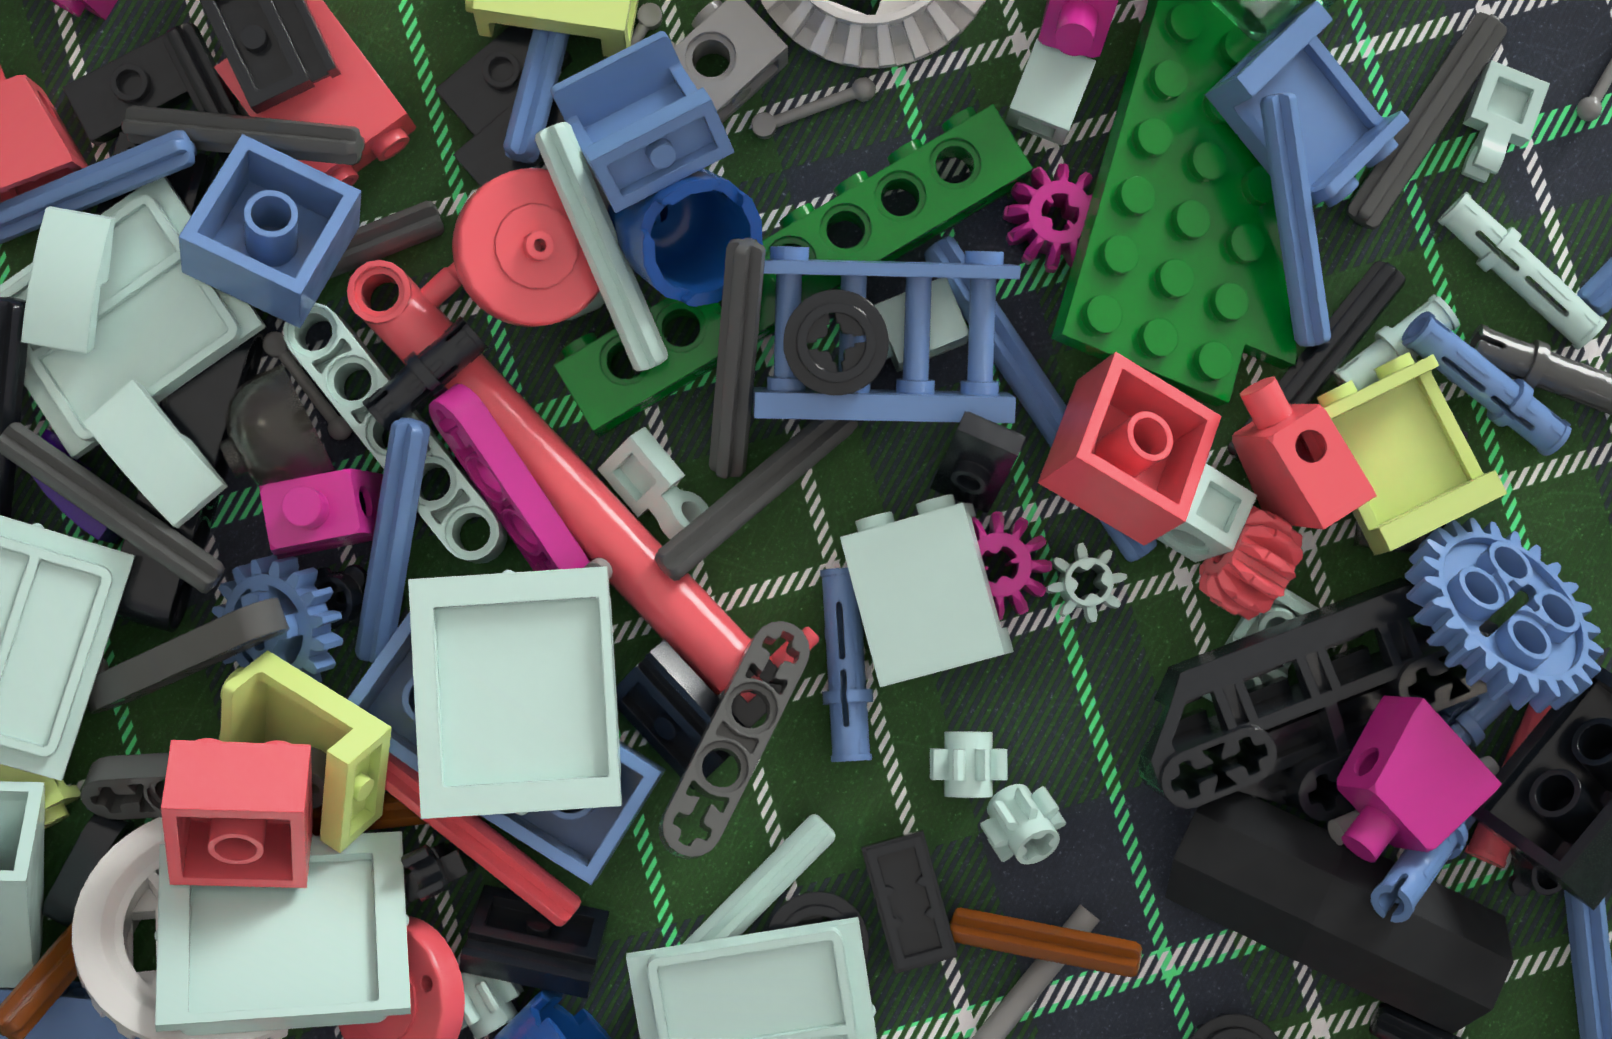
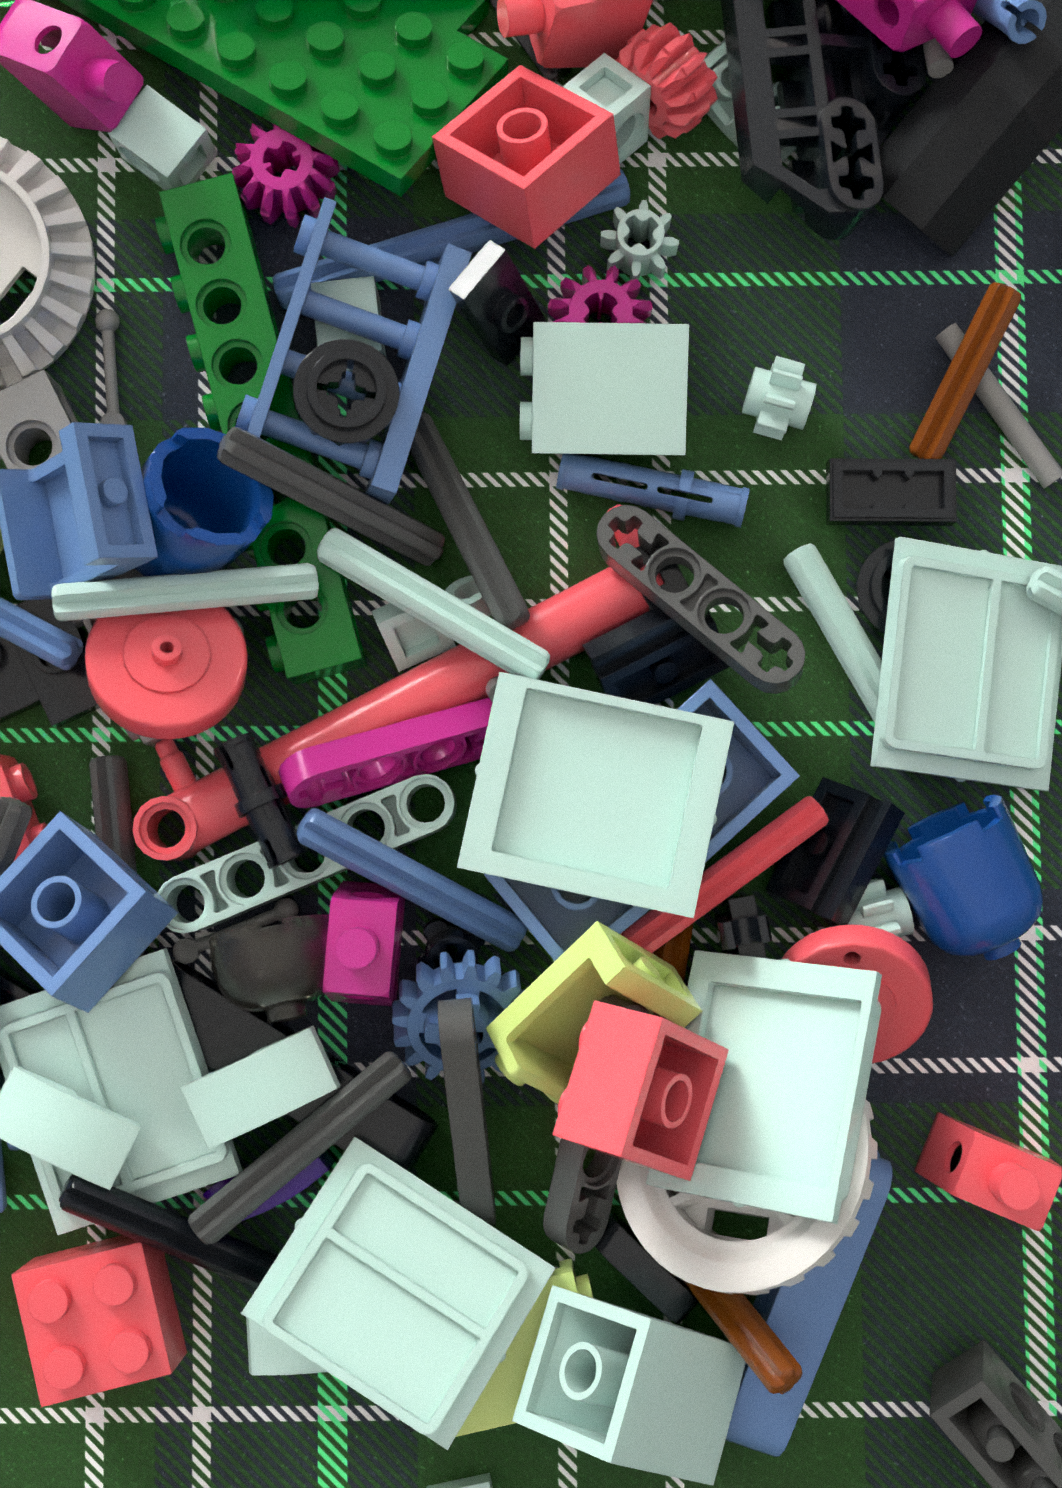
camera: 70 degrees left, 0 degrees up
(658, 485) = (432, 605): none -> light aqua axle
(1023, 824) = (849, 363): light aqua gear -> none

